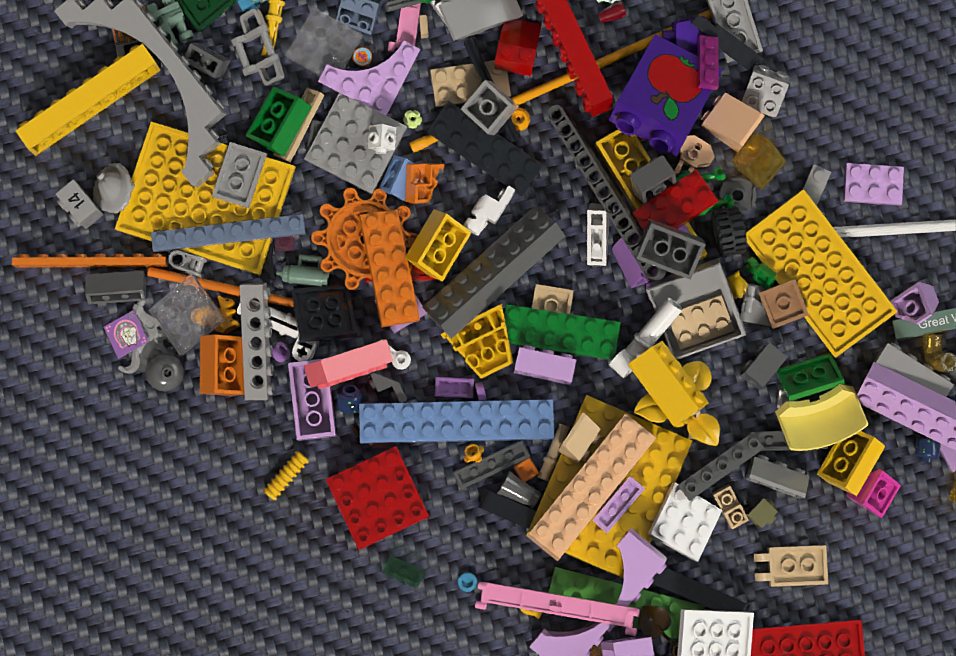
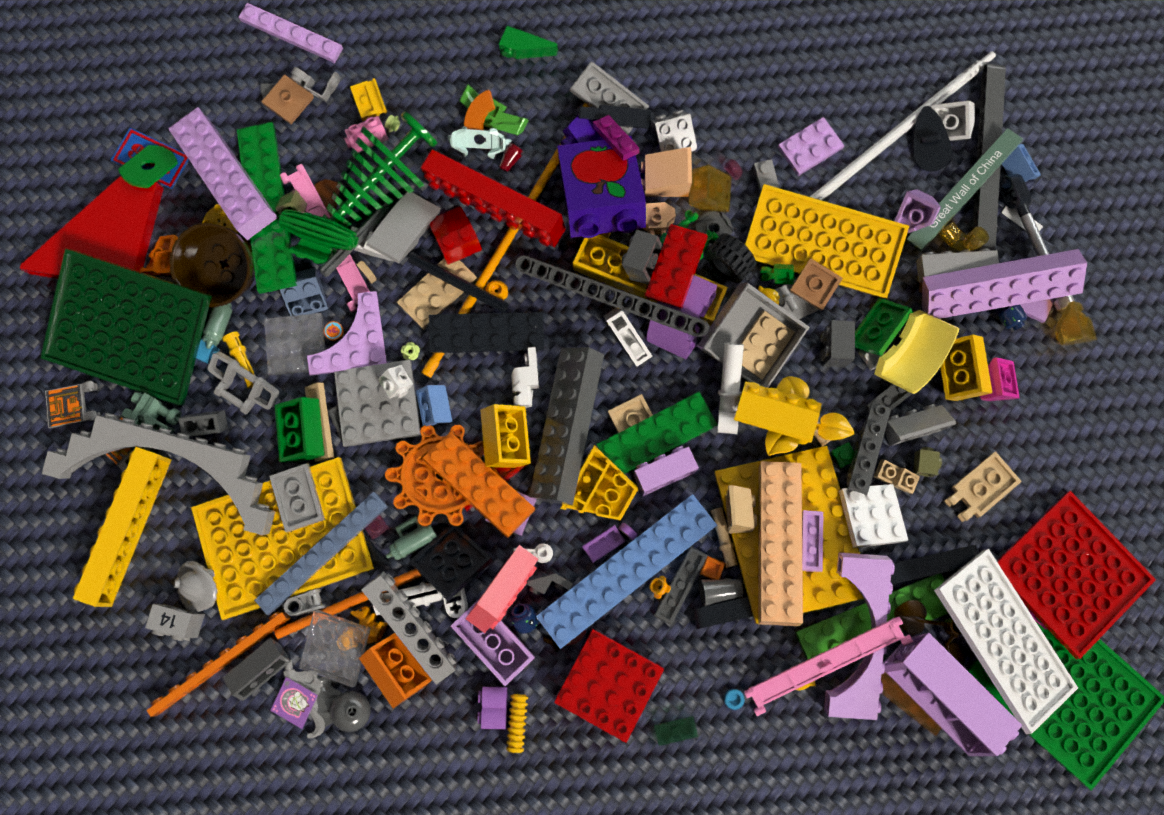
camera: 35 degrees left, 5 degrees down
(276, 450) = (493, 707): none -> medium lavender brick
(280, 352) = (437, 620): medium lavender tile -> none
(421, 181) = (454, 396): orange slope -> none
(489, 107) = (466, 295): light grey brick -> none
(670, 249) = (700, 299): dark grey slope -> none
(700, 458) = (843, 455): none -> green plate
(792, 157) = (733, 169): none -> clear pink tile

